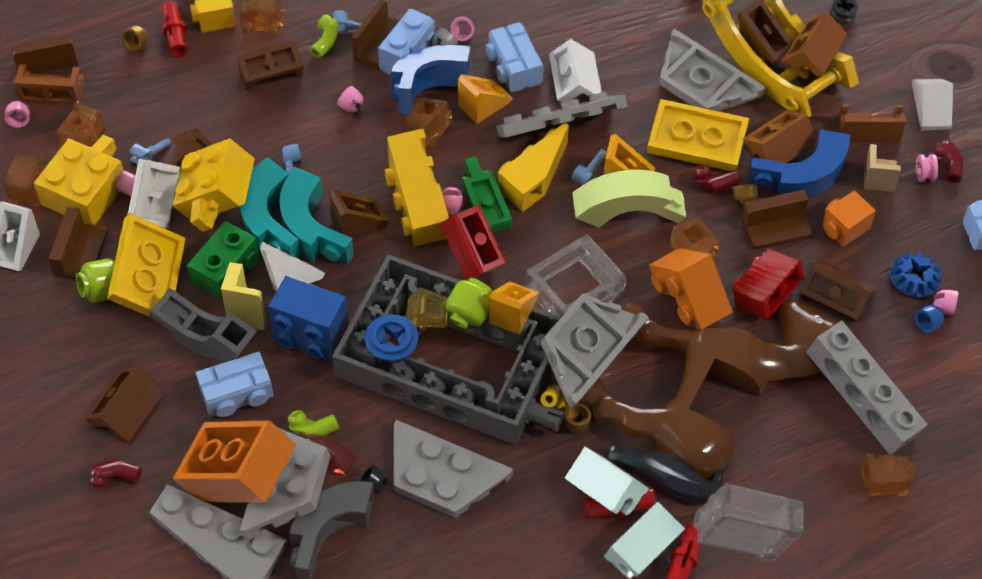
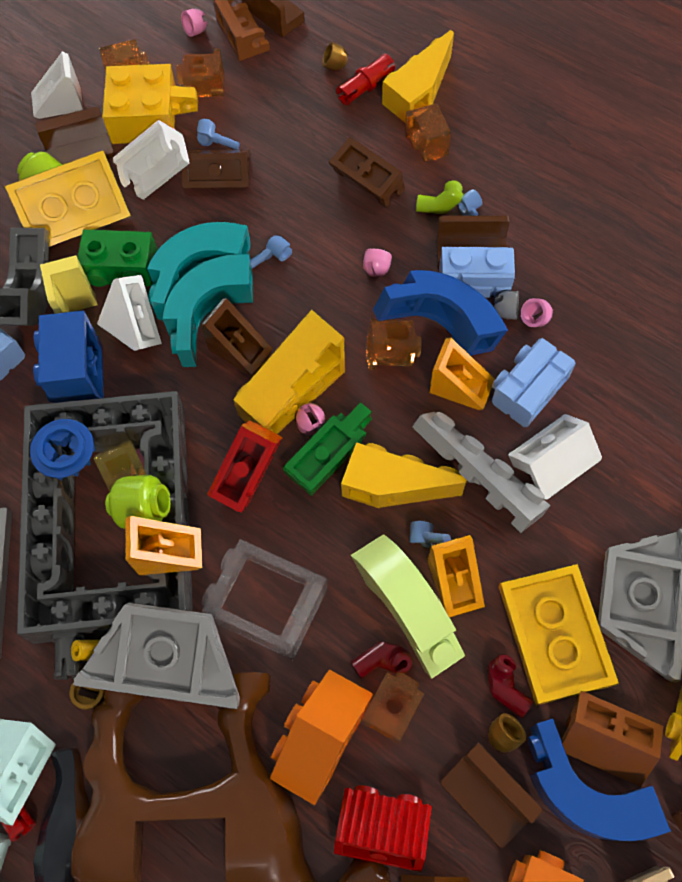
camera: 65 degrees right, 10 degrees up
(213, 182) = (183, 199): yellow hinge -> none
(655, 236) = (384, 656): none -> dark red arm

